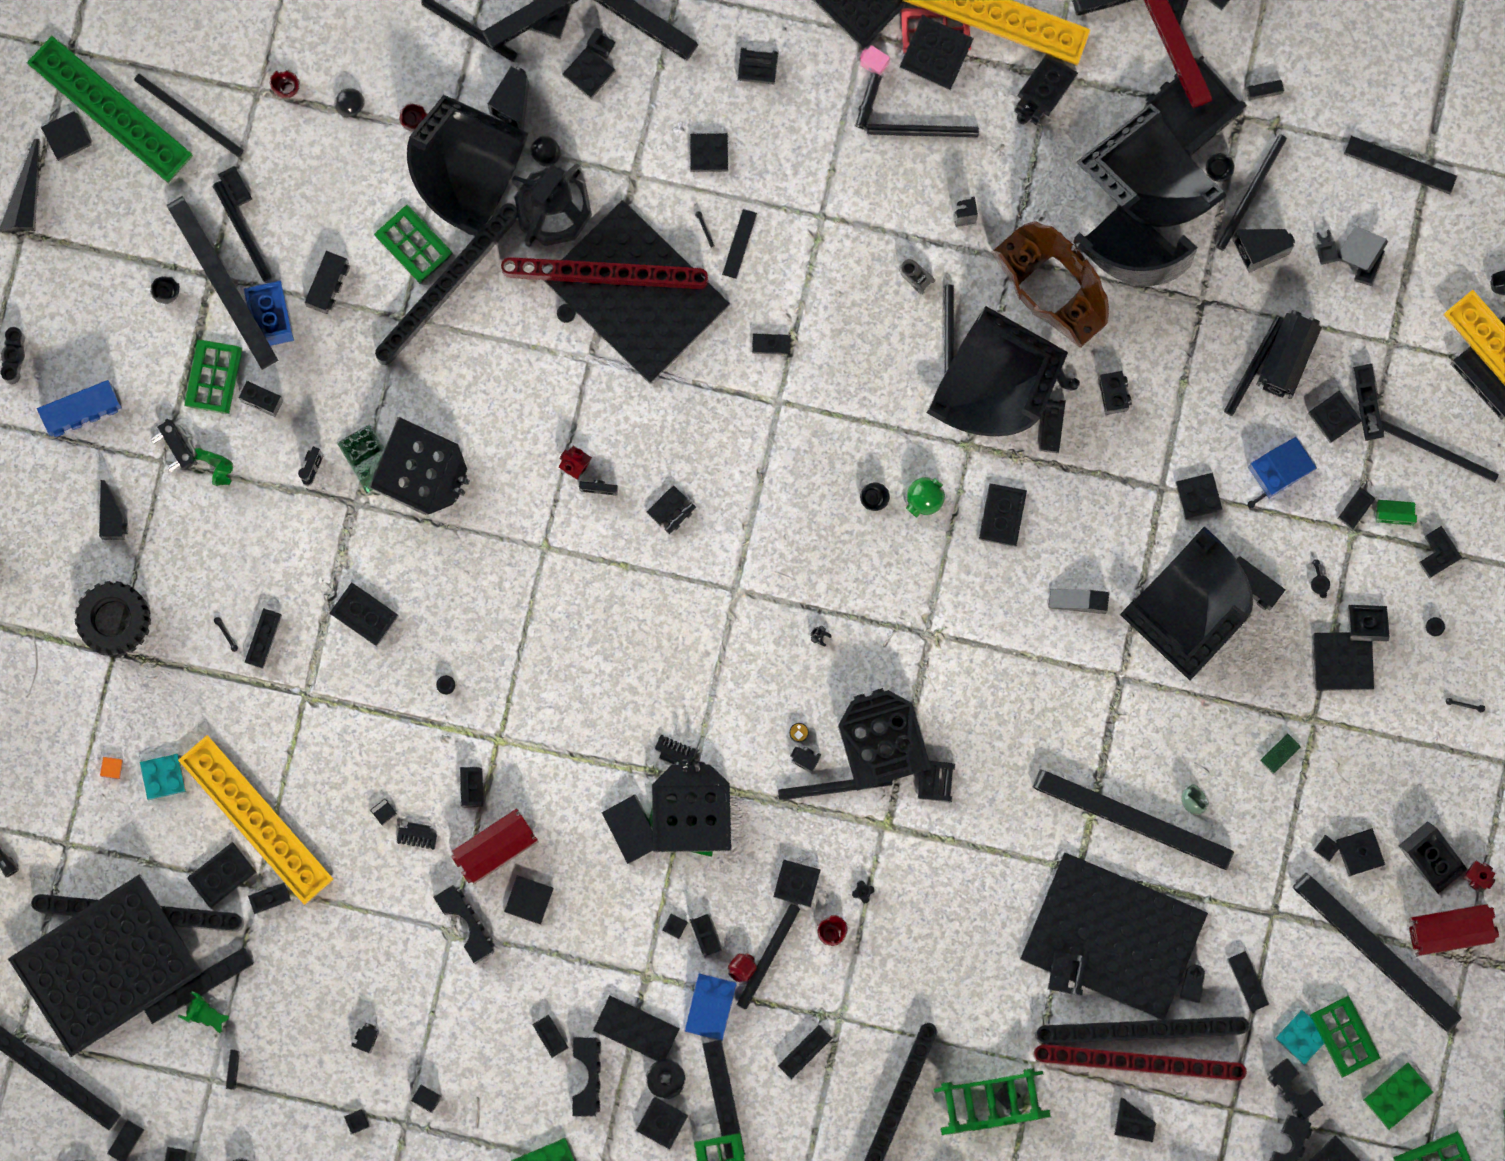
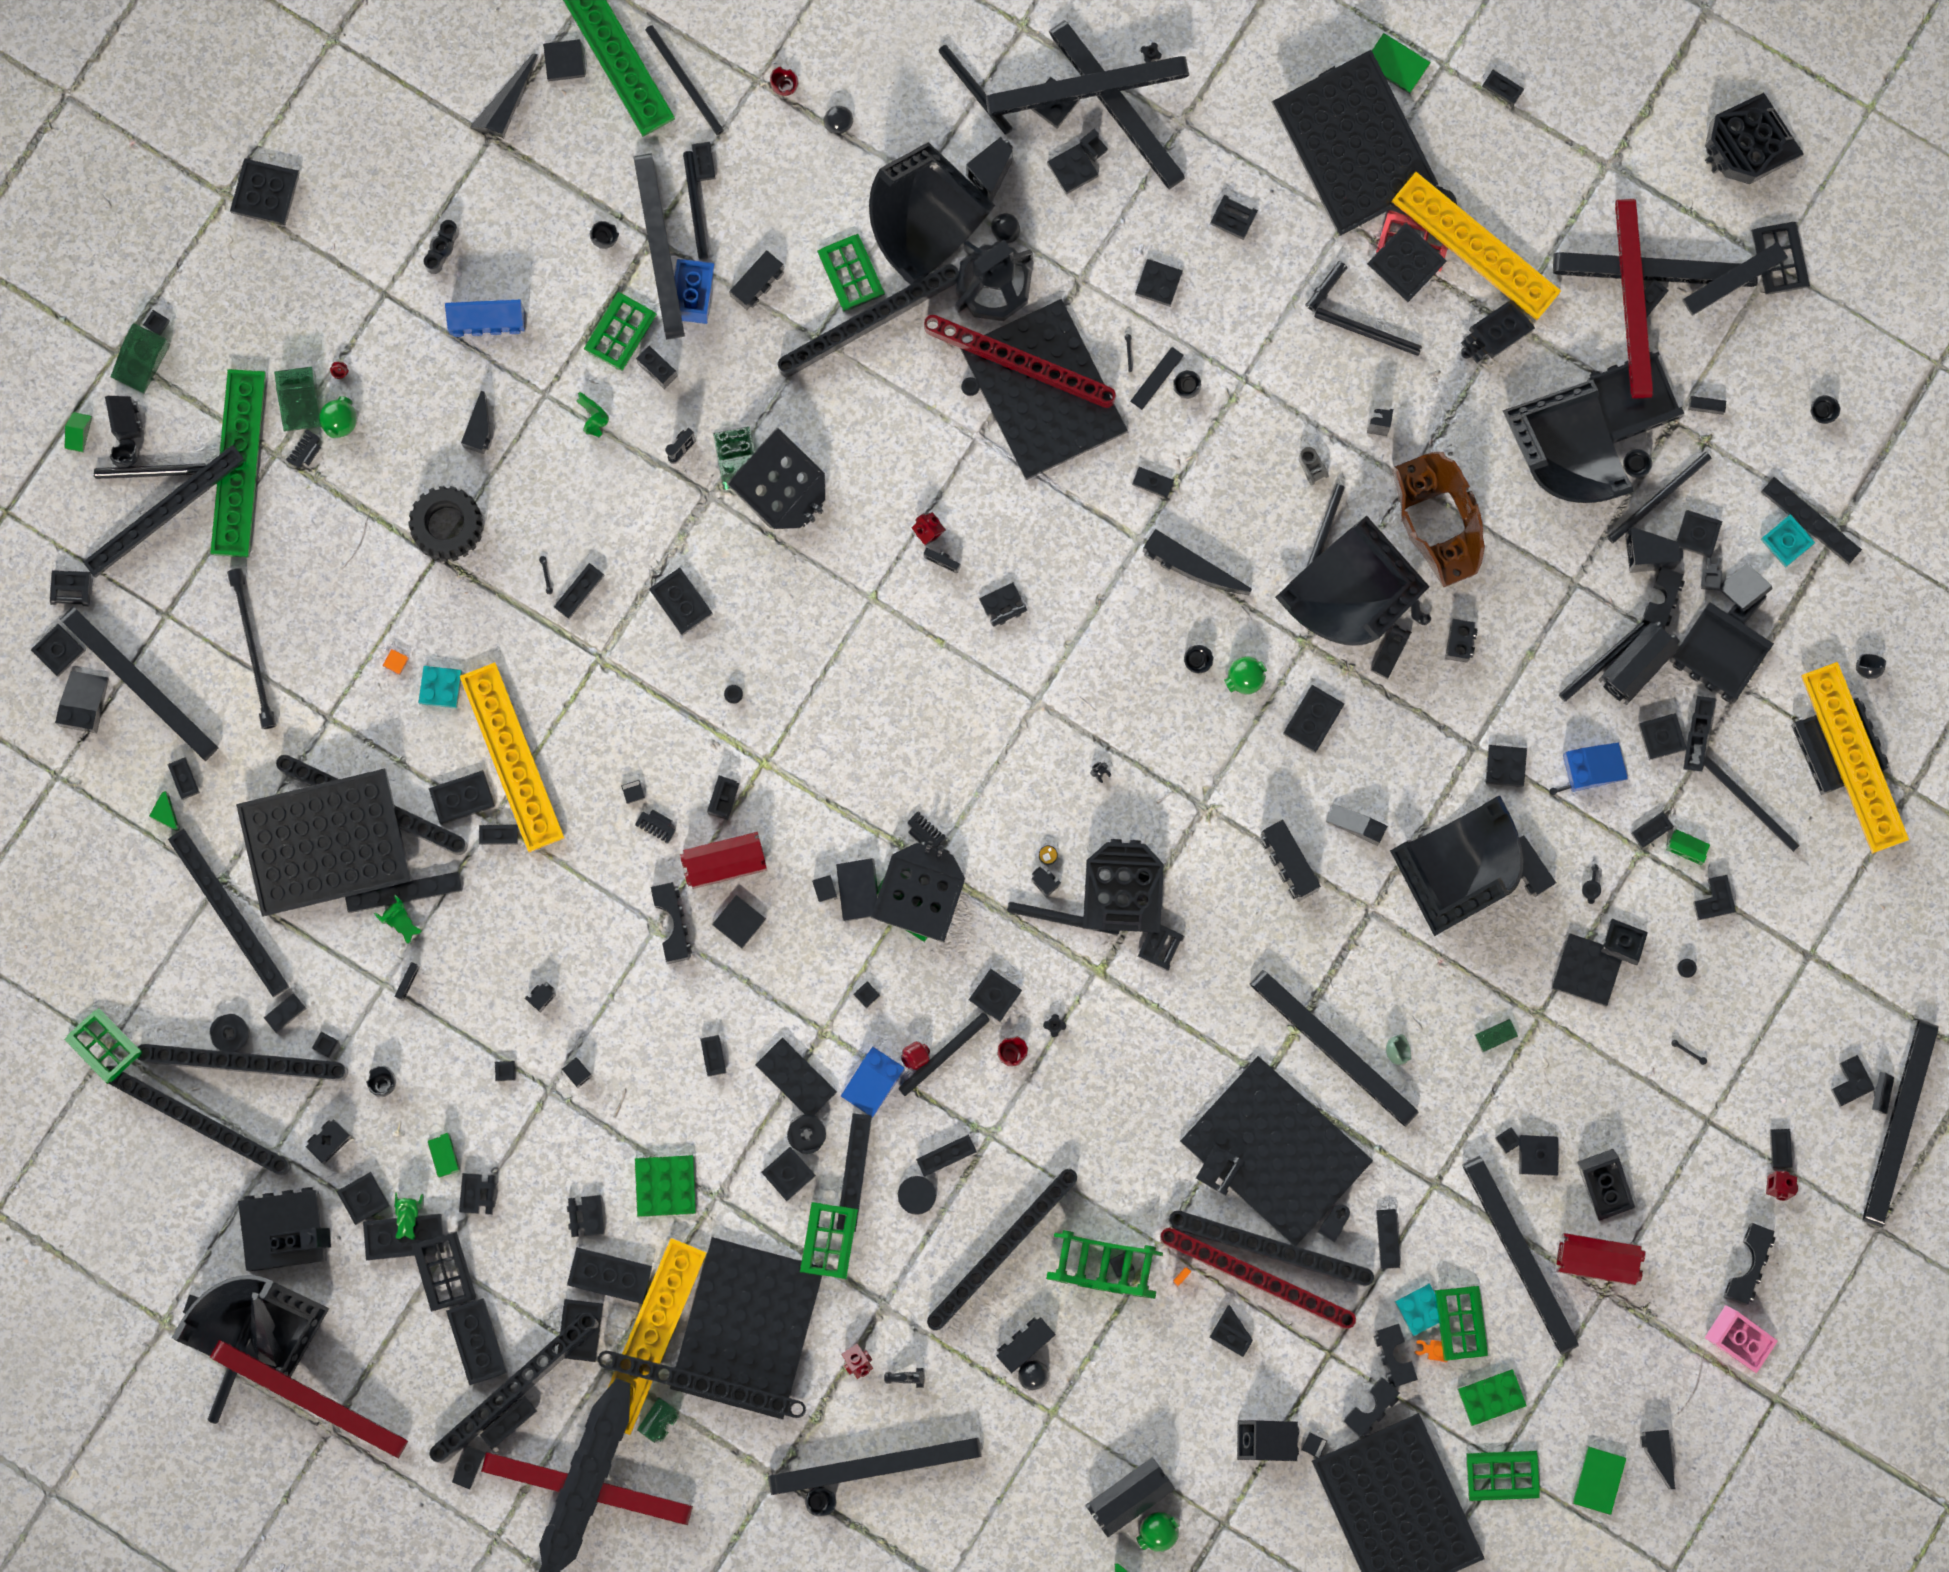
camera: 20 degrees right, 0 degrees up
(177, 445) = (563, 381): black piece -> none
(412, 116) = (891, 151): dark red hair -> none
(586, 1103) = (724, 1129): black arch -> none
(599, 839) = (824, 888): none -> black panel
(705, 935) = (892, 1013): black panel -> none
(771, 239) = (1187, 384): none -> black hair
(790, 1099) = (916, 1195): none -> black tile
(834, 410) = (1187, 563): none -> black slope
(874, 60) = (1345, 249): bright pink brick -> none
(1029, 657) = (1290, 861): none -> black brick
(1067, 1087) = (1181, 1276): none -> orange tile
(1135, 251) = (1527, 514): black panel -> none
(1290, 270) = (1669, 583): none -> black arch
(1300, 213) = (1698, 533): none -> black plate
(1328, 1070) = (1434, 1350): none -> orange plate
(1361, 318) = (1721, 653): none -> black panel
(1376, 55) = (1825, 409): none -> black hair
(1385, 191) = (1787, 541): none -> teal plate
(1474, 879) = (1637, 1218): dark red brick -> none

